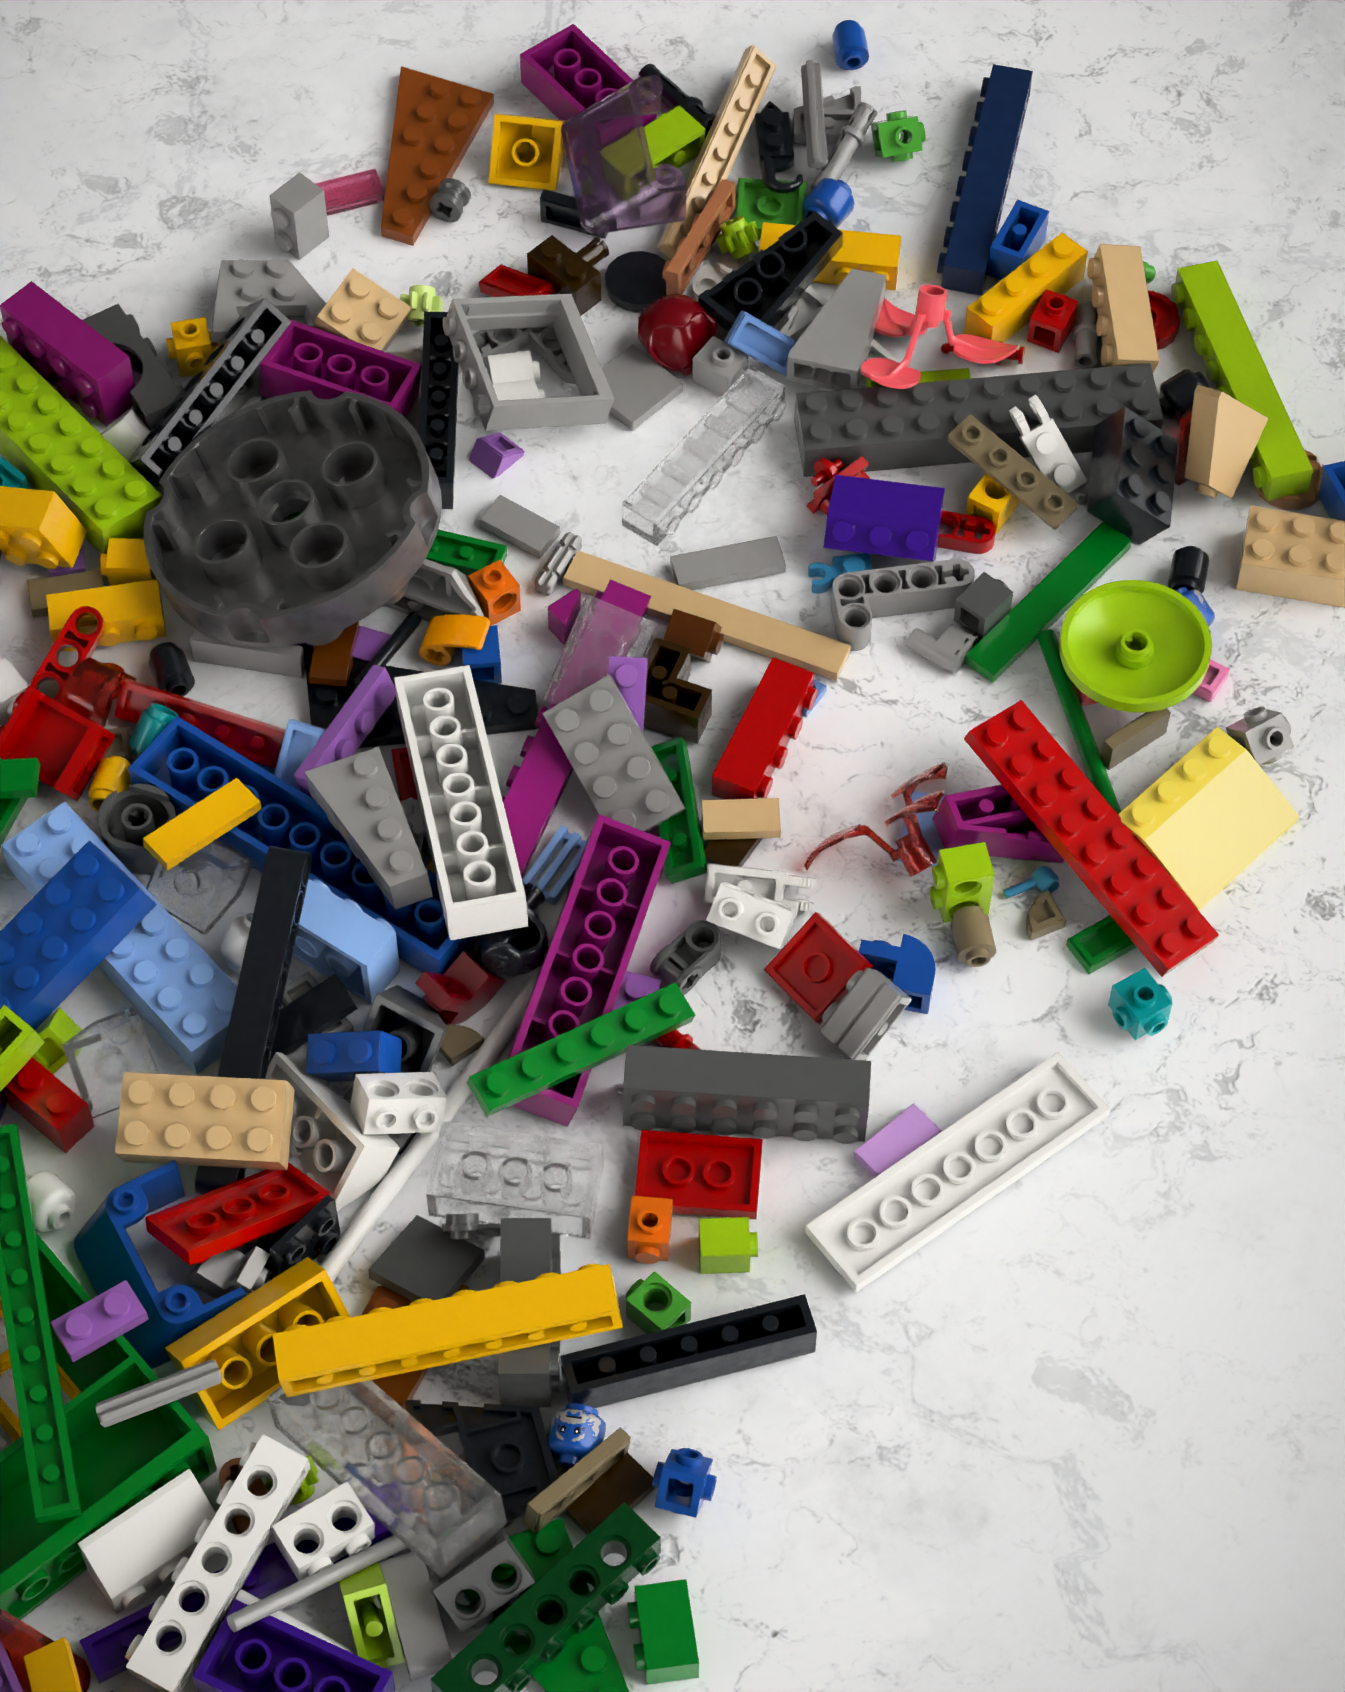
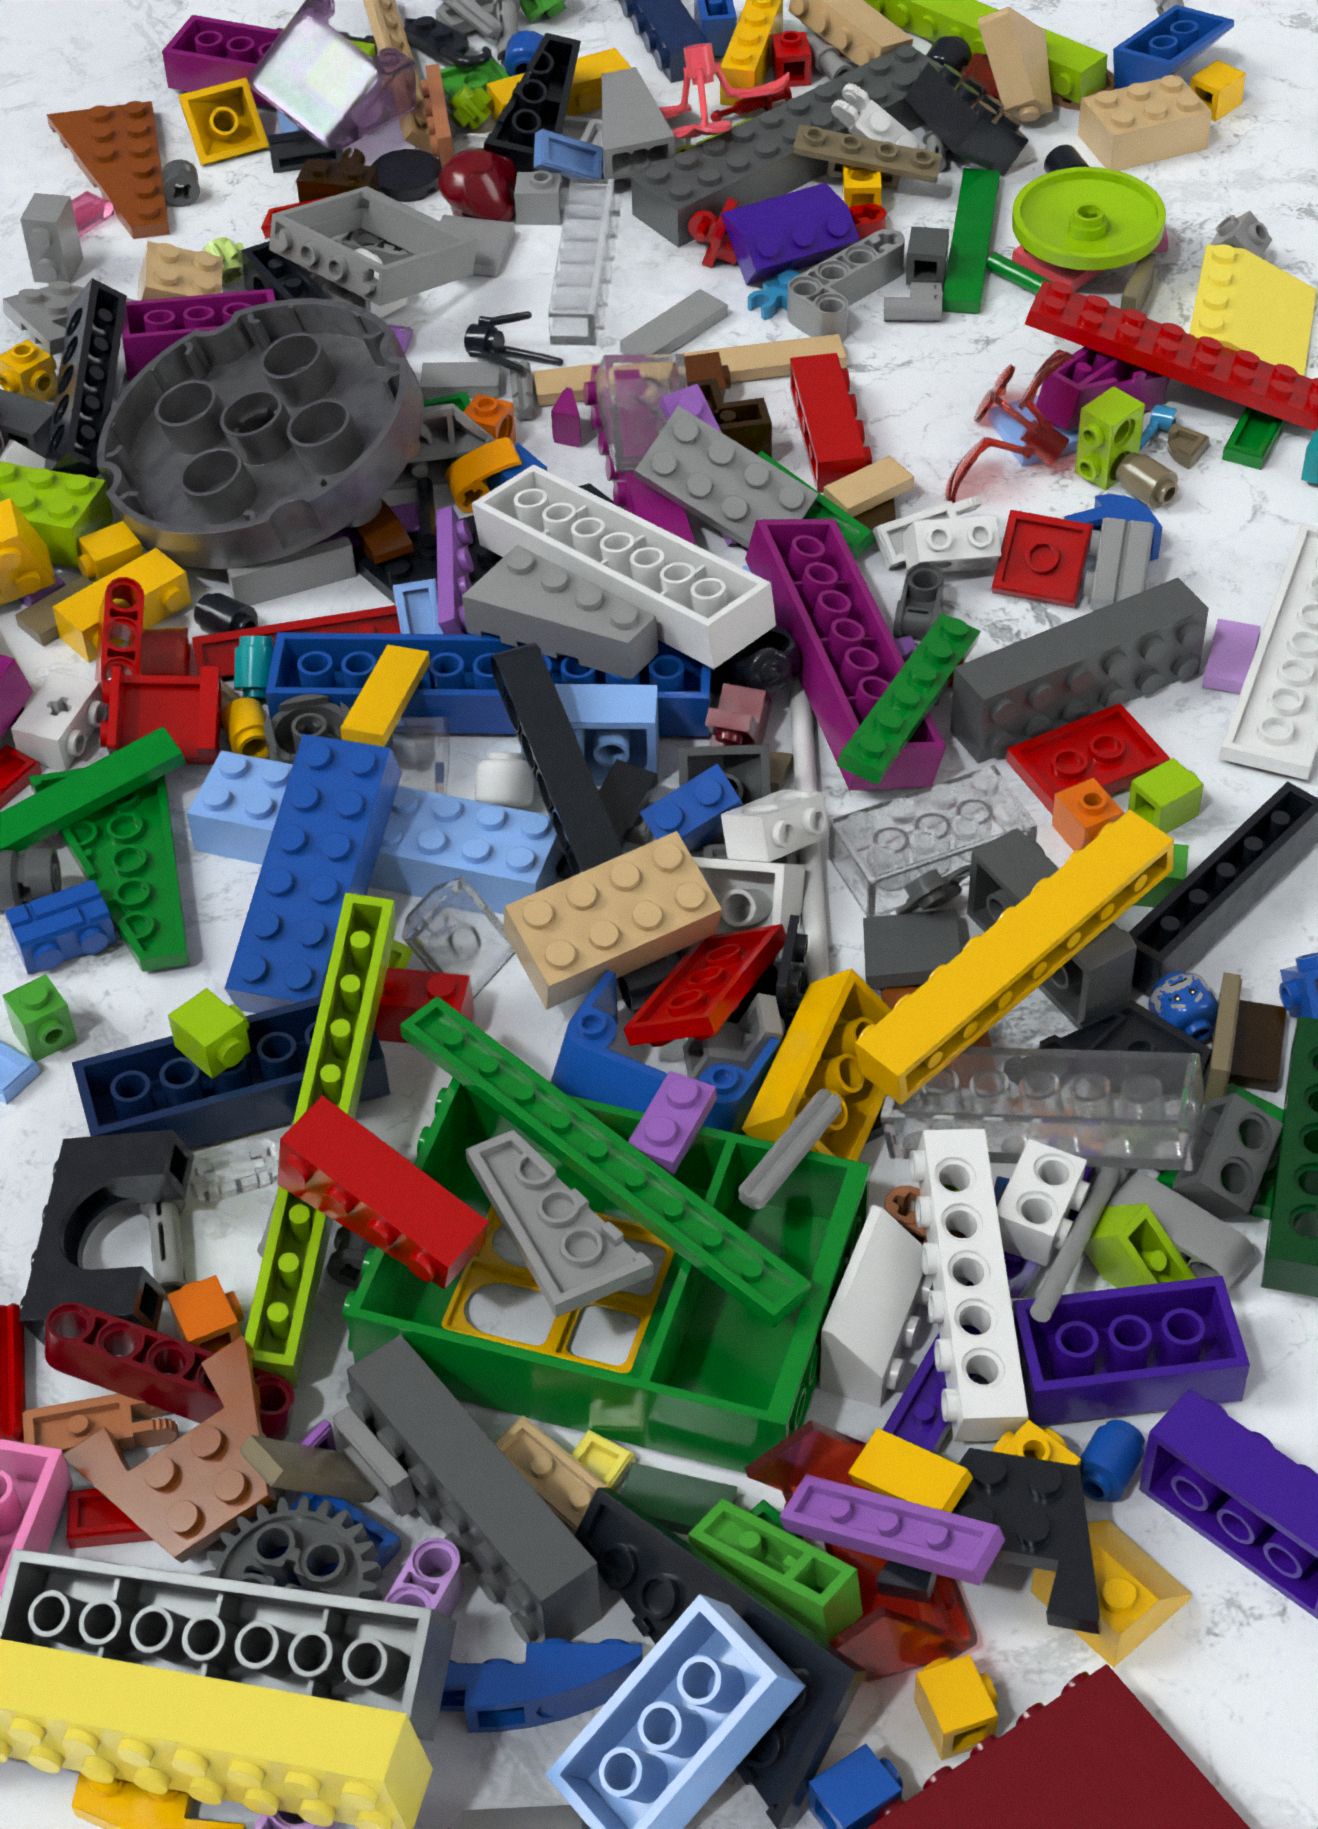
camera: 30 degrees left, 10 degrees down
(562, 499) = (486, 341): none -> black plant

